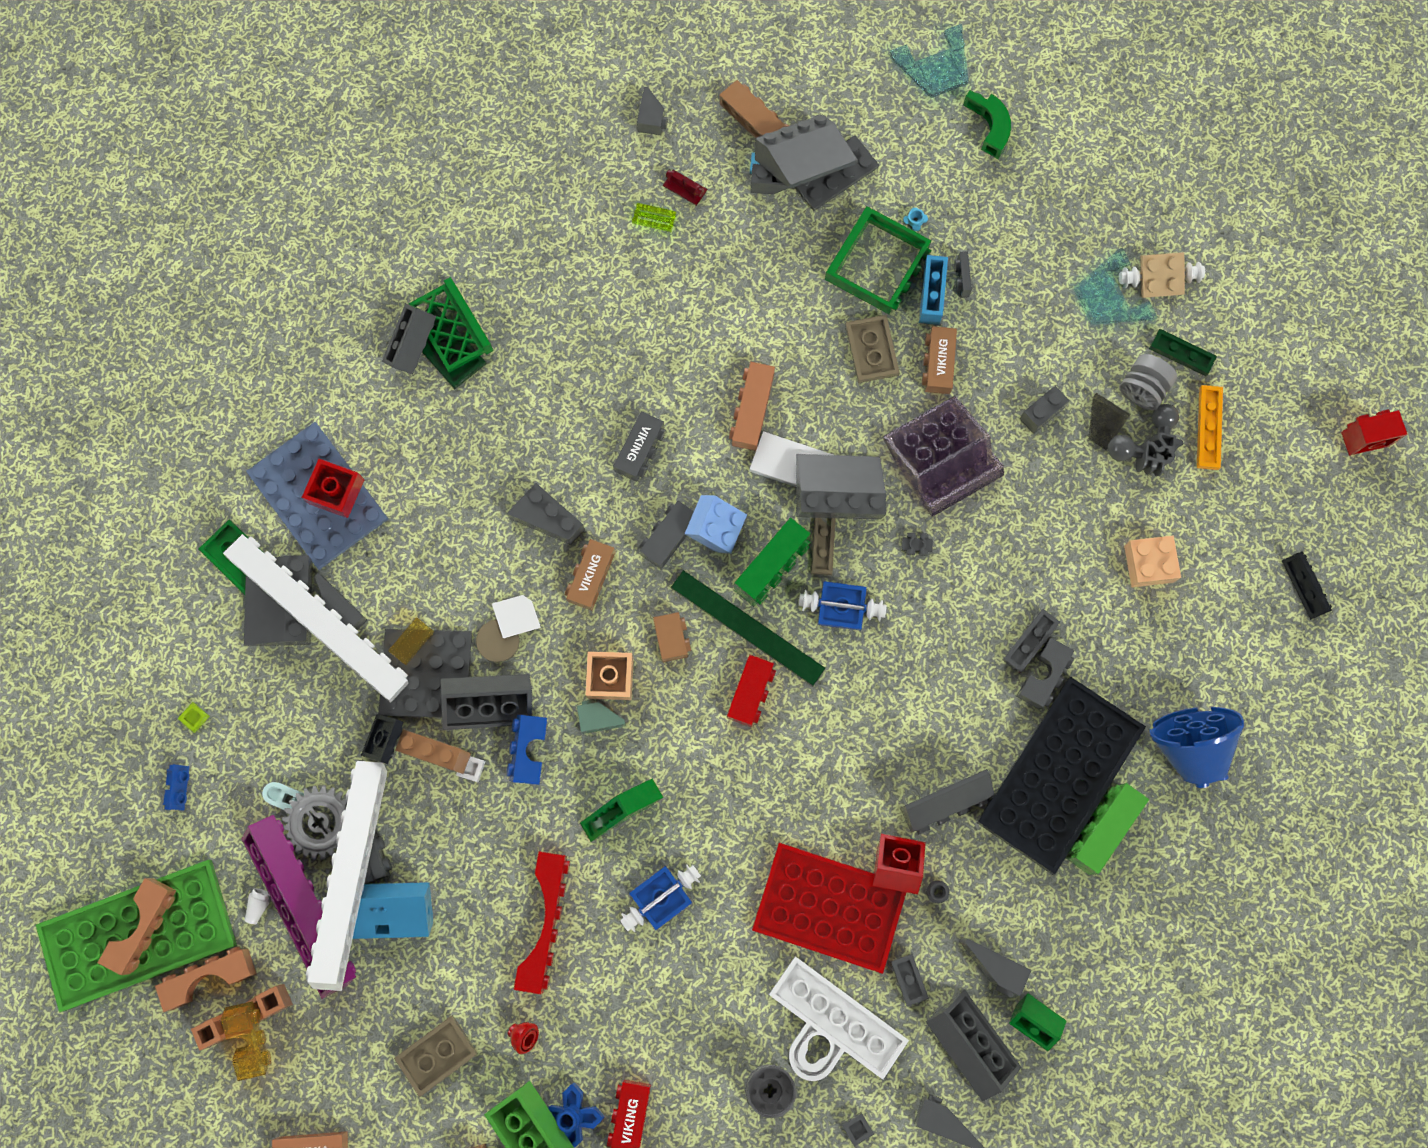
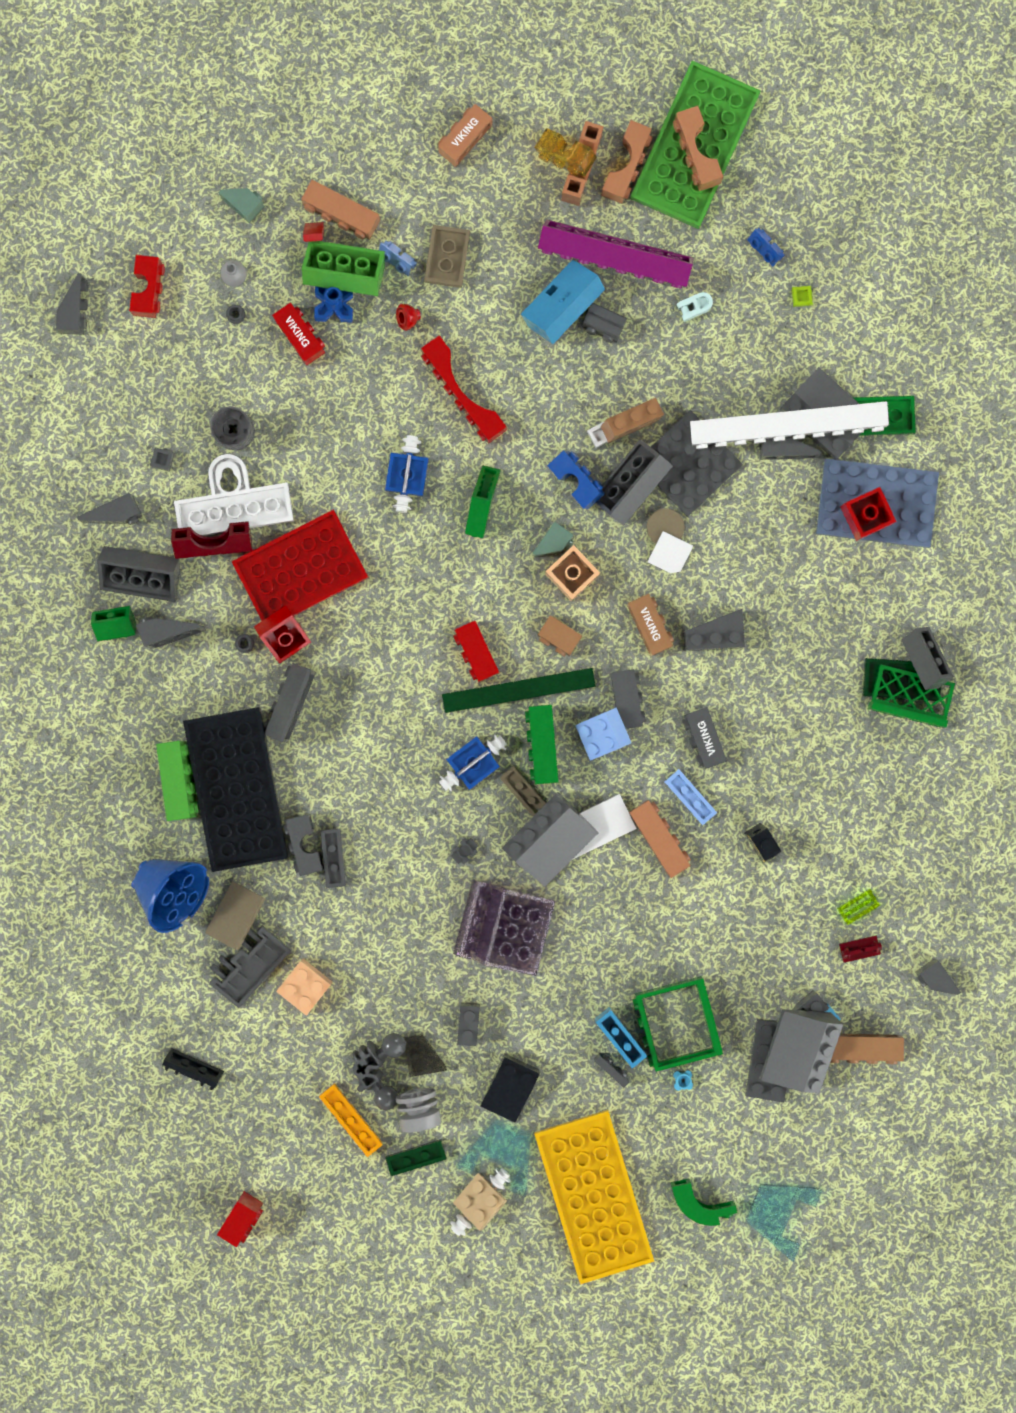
camera: 130 degrees right, 10 degrees up
(257, 903) = (643, 232): white cone -> none
(305, 805) = (638, 311): light grey gear -> none
(347, 877) = (603, 297): white brick -> none
(382, 738) = (671, 397): black plate -> none
(411, 641) = (717, 472): clear yellow tile -> none
(478, 1089) = (402, 263): none -> medium blue hinge
(677, 324) = (762, 842): none -> black torso
(696, 414) = (690, 797): none -> light blue plate
(872, 349) = (621, 956): dark tan plate -> none
(904, 1024) = (188, 543): none -> dark red arch
(909, 980) = (212, 574): dark grey plate -> none
(939, 360) = (569, 992): medium nougat brick -> none
(1055, 334) = (510, 1088): none -> black slope
(1067, 201) = (594, 1197): none -> yellow plate
(1158, 672) = (235, 915): none -> dark tan tile
(1186, 619) = (249, 968): none -> dark grey hinge

